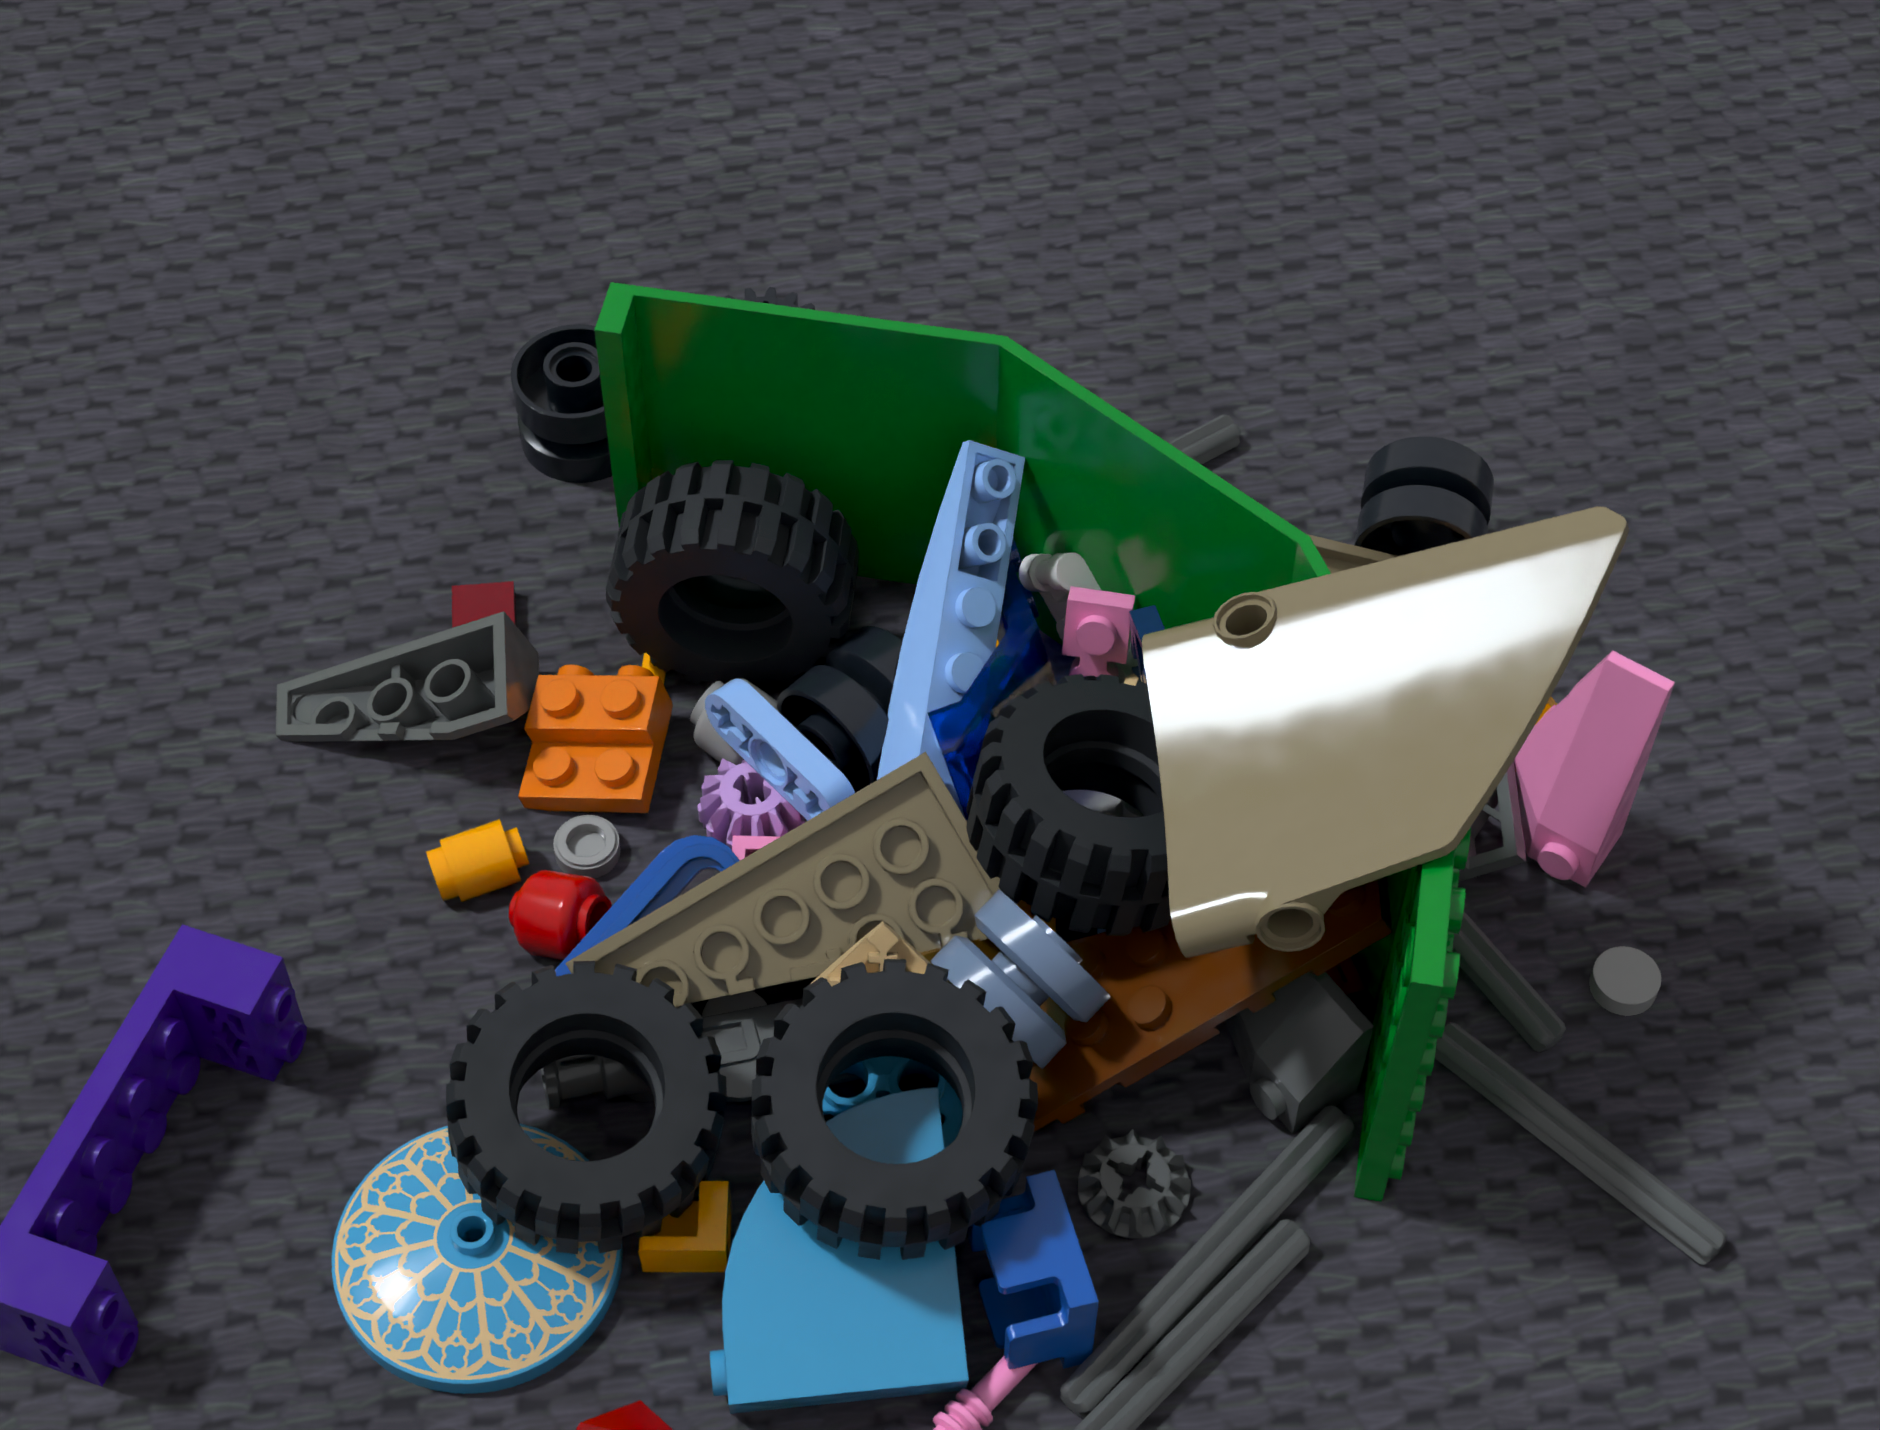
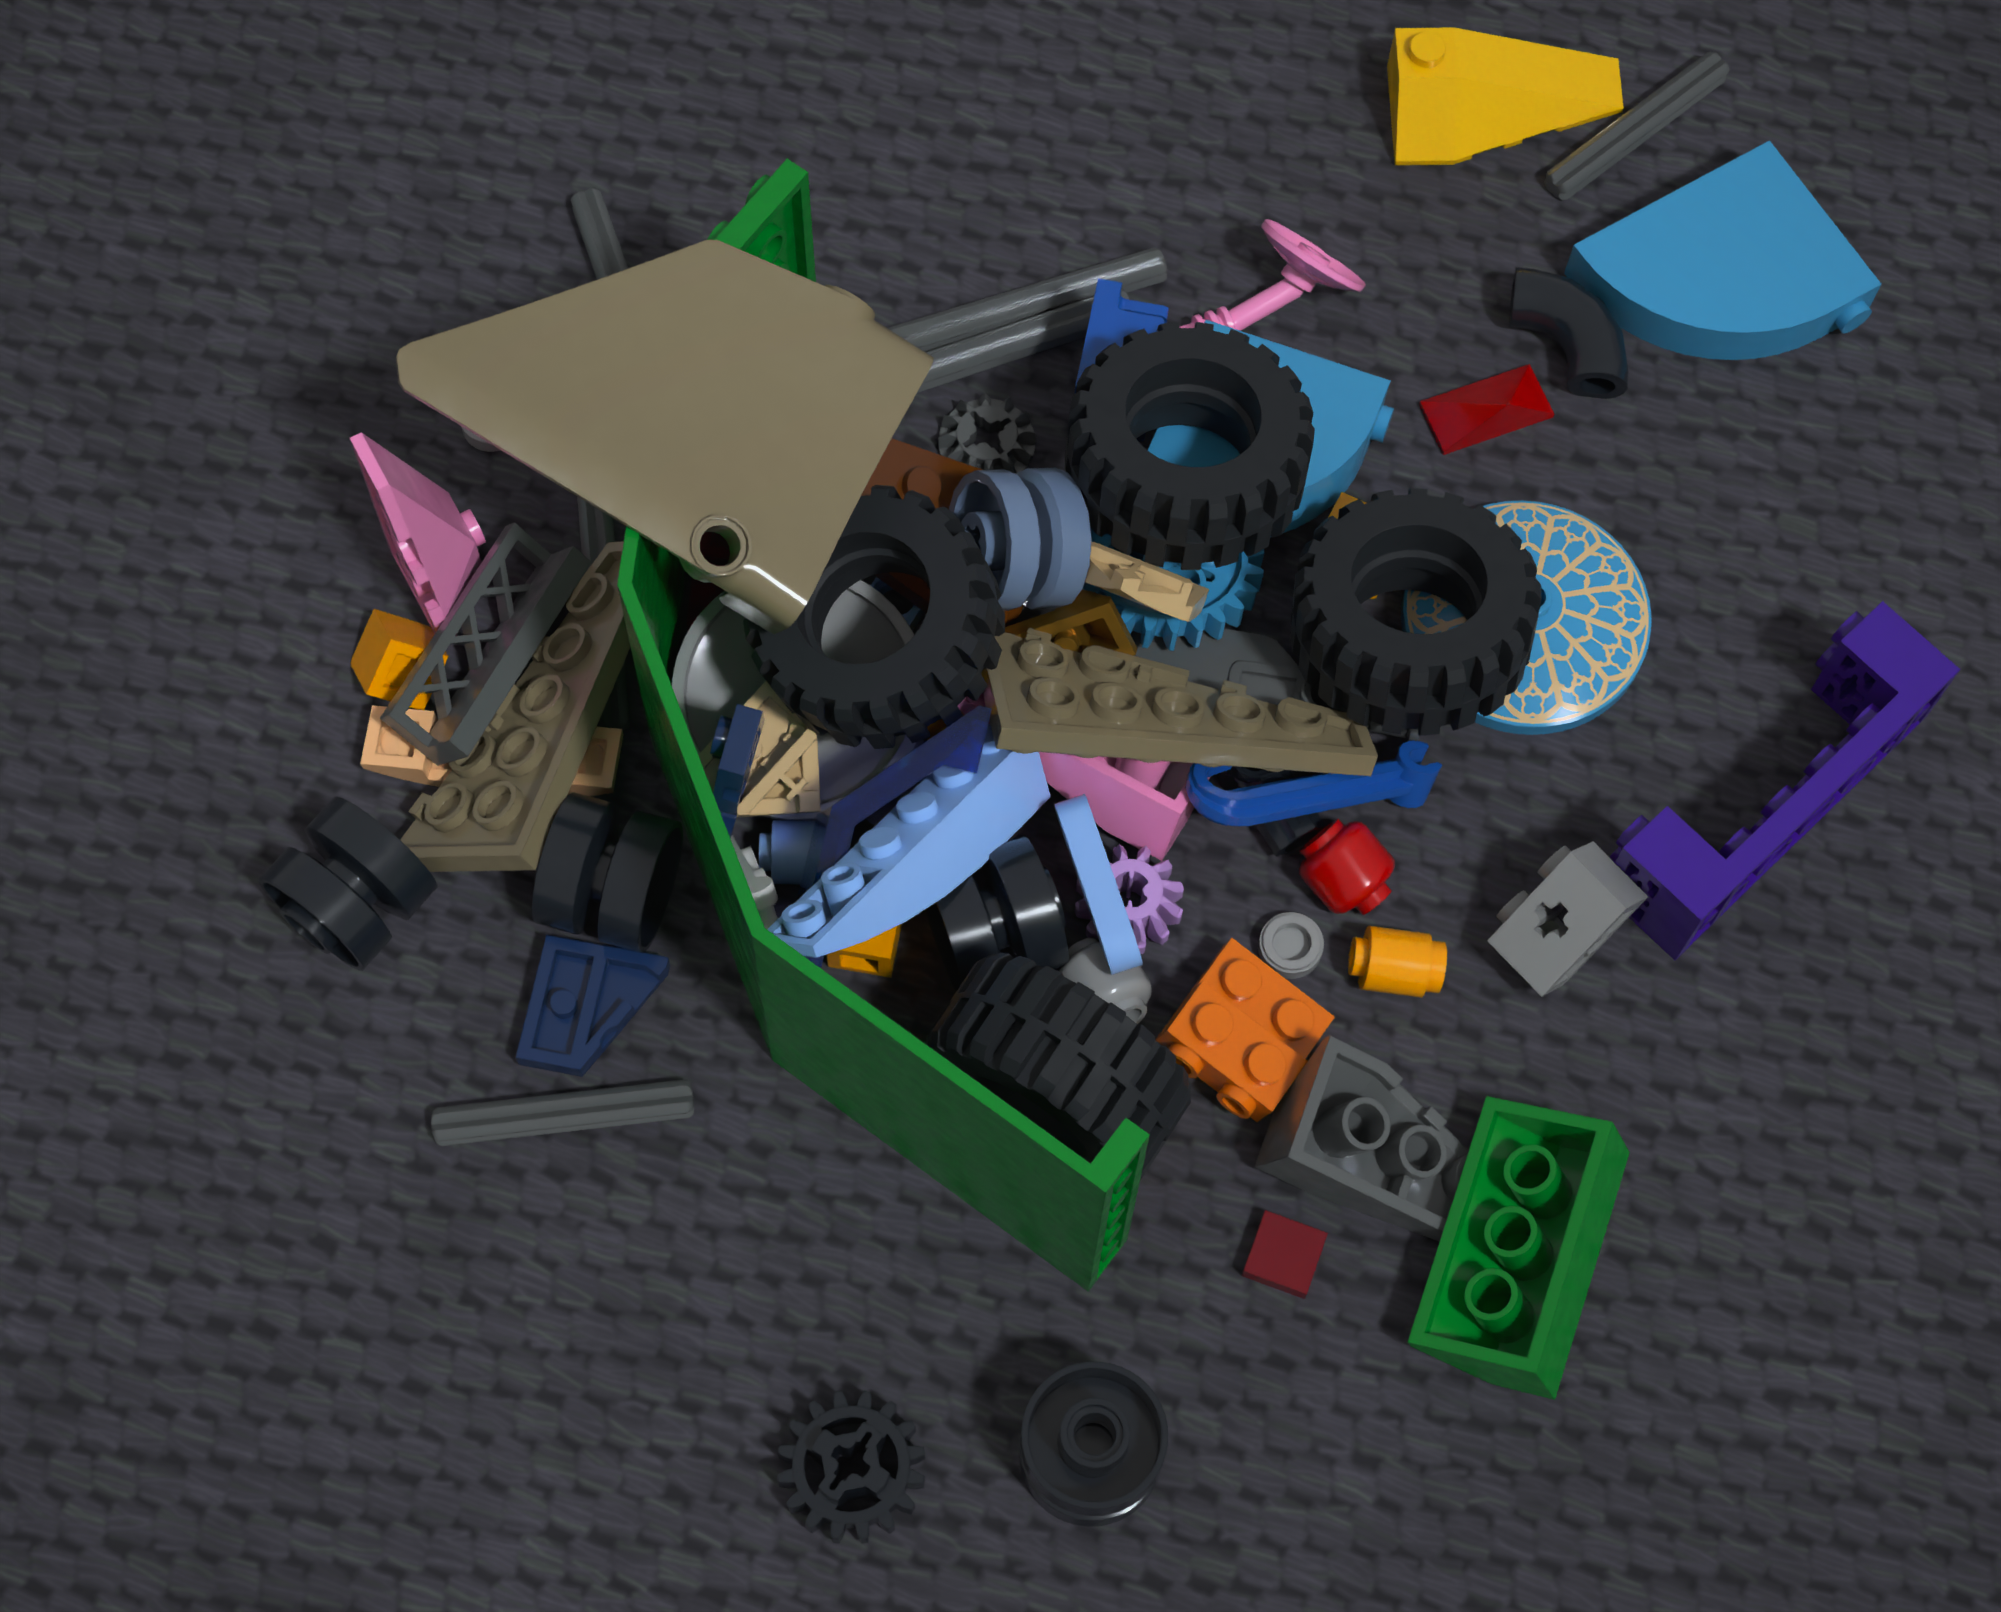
camera: 155 degrees left, 15 degrees up
(274, 675) = (1521, 1245): none -> green slope
(325, 928) = (1597, 904): none -> light grey brick
(1097, 631) = (759, 841): bright pink plate -> none

